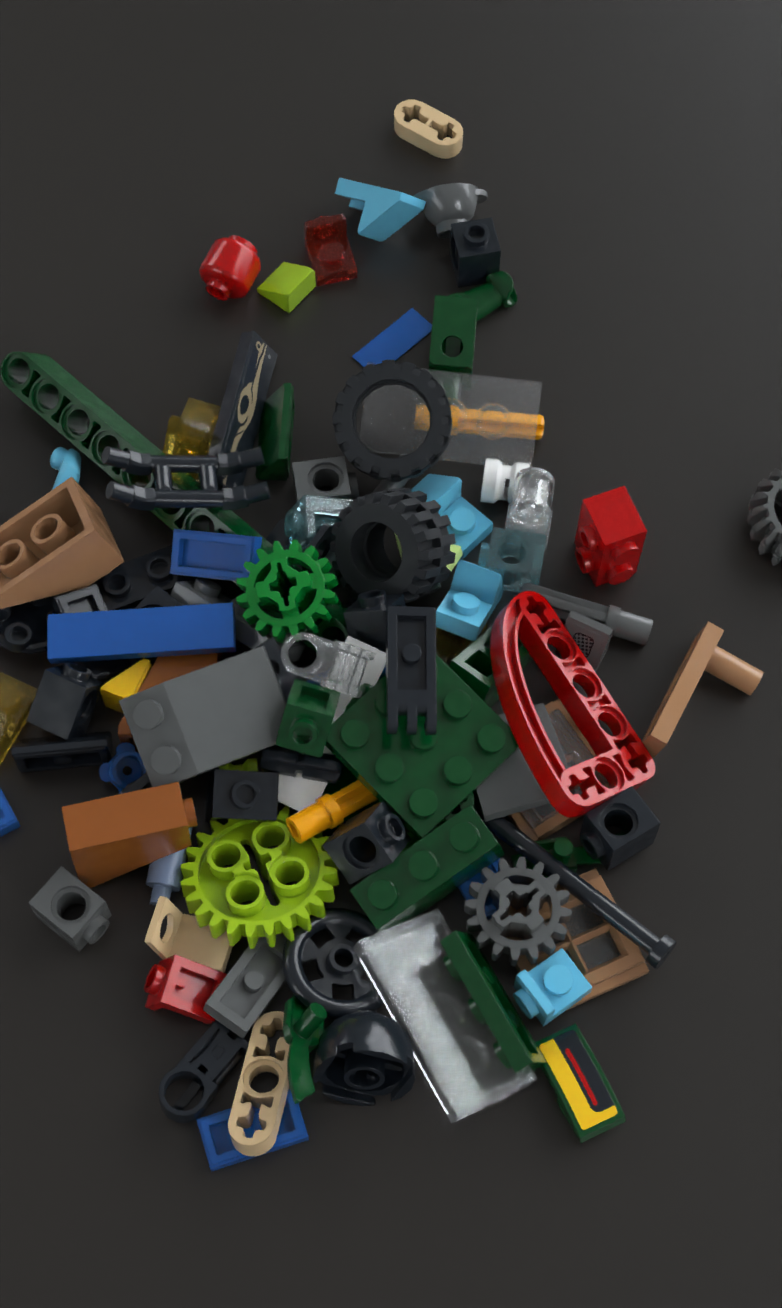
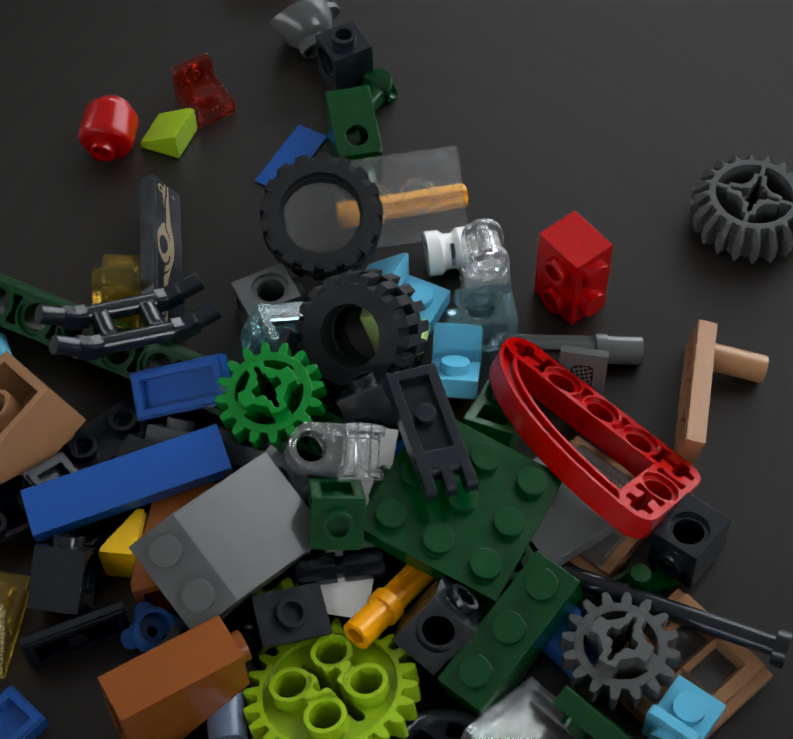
camera: 15 degrees left, 10 degrees down
(277, 434) = (202, 257): dark green slope -> none
(382, 208) = (242, 39): medium azure slope -> none

